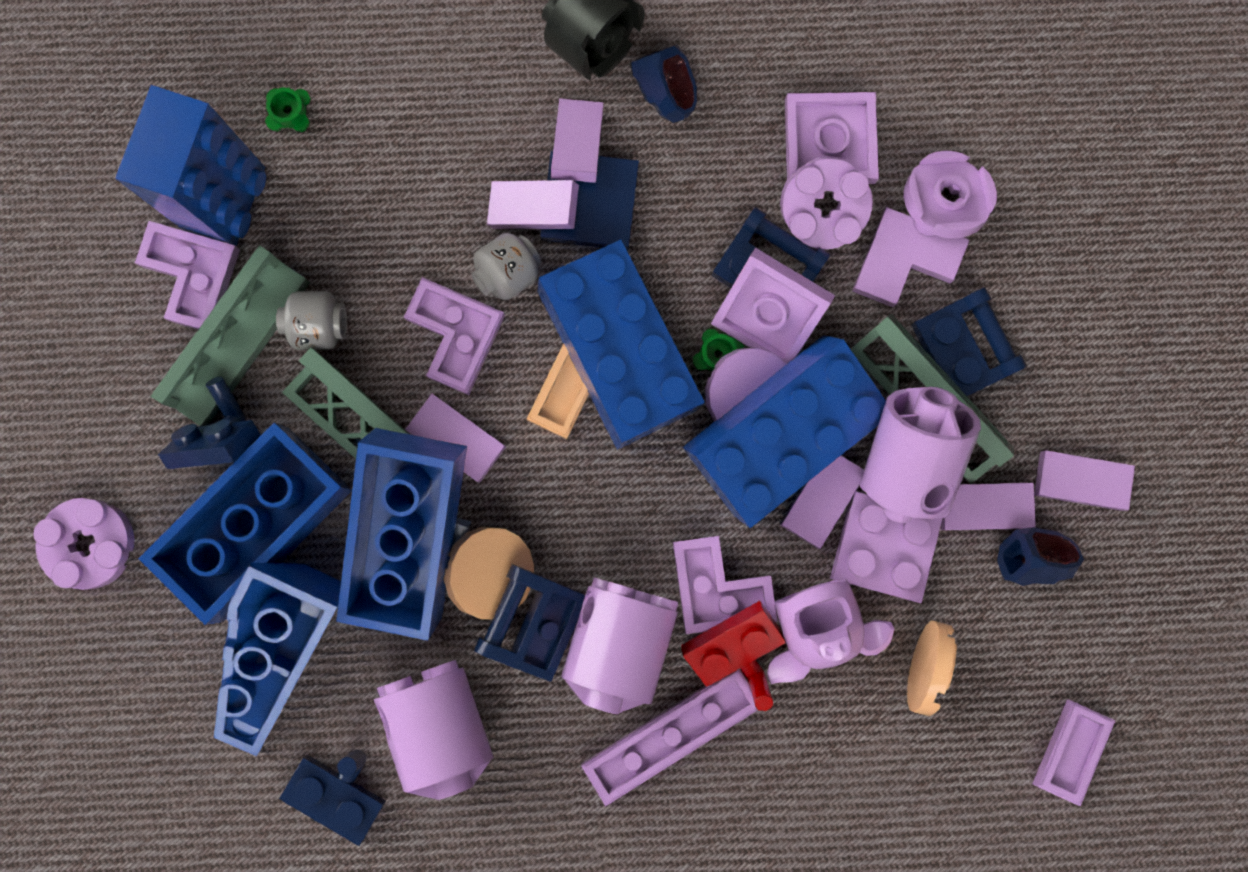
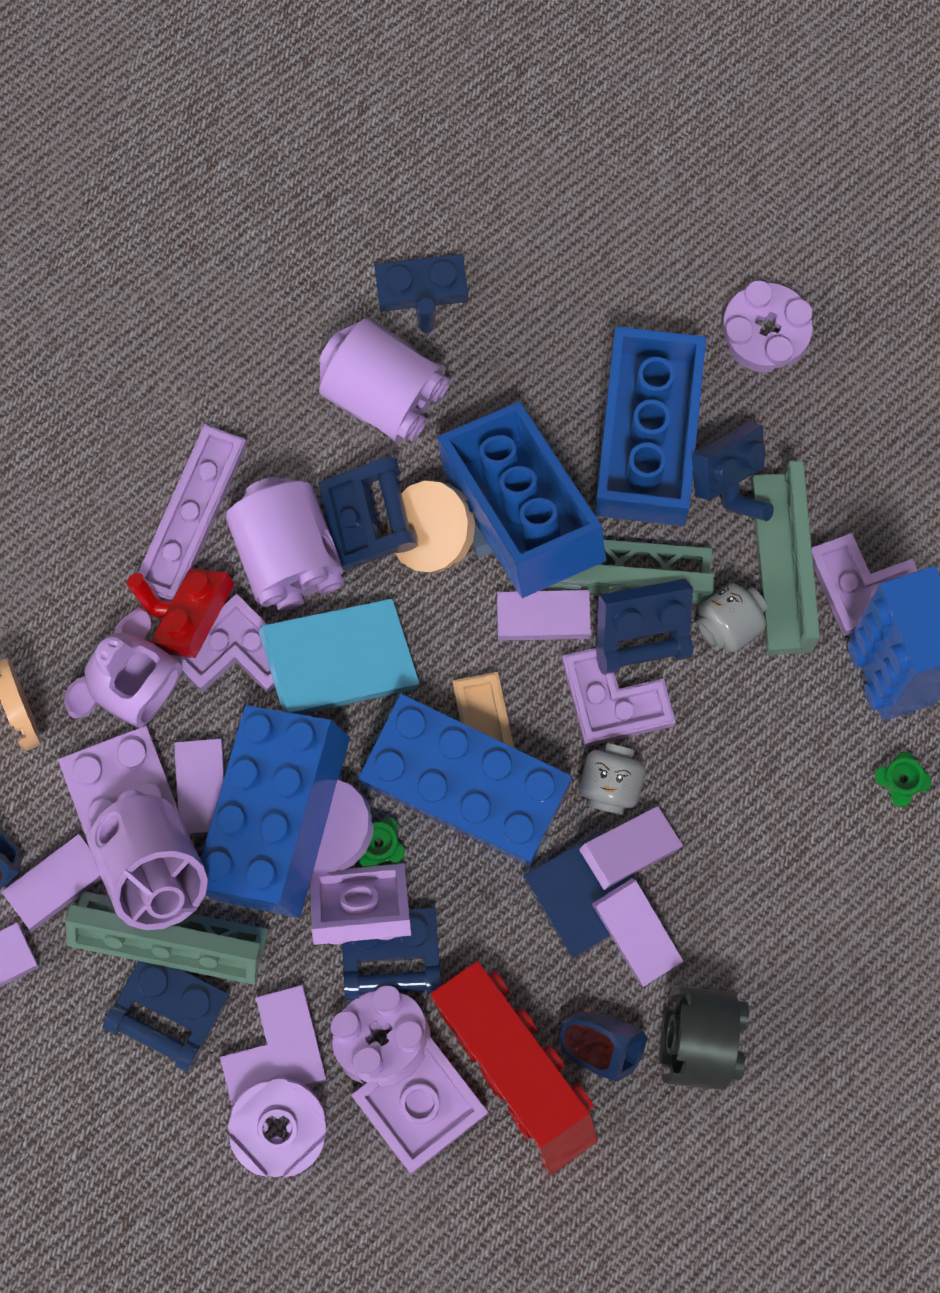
camera: 145 degrees right, 10 degrees down
(269, 640) = (560, 358): blue wedge -> none
(381, 370) = (640, 614): none -> dark blue plate
(644, 519) = (338, 657): none -> medium azure tile
(744, 107) = (517, 1065): none -> red wedge

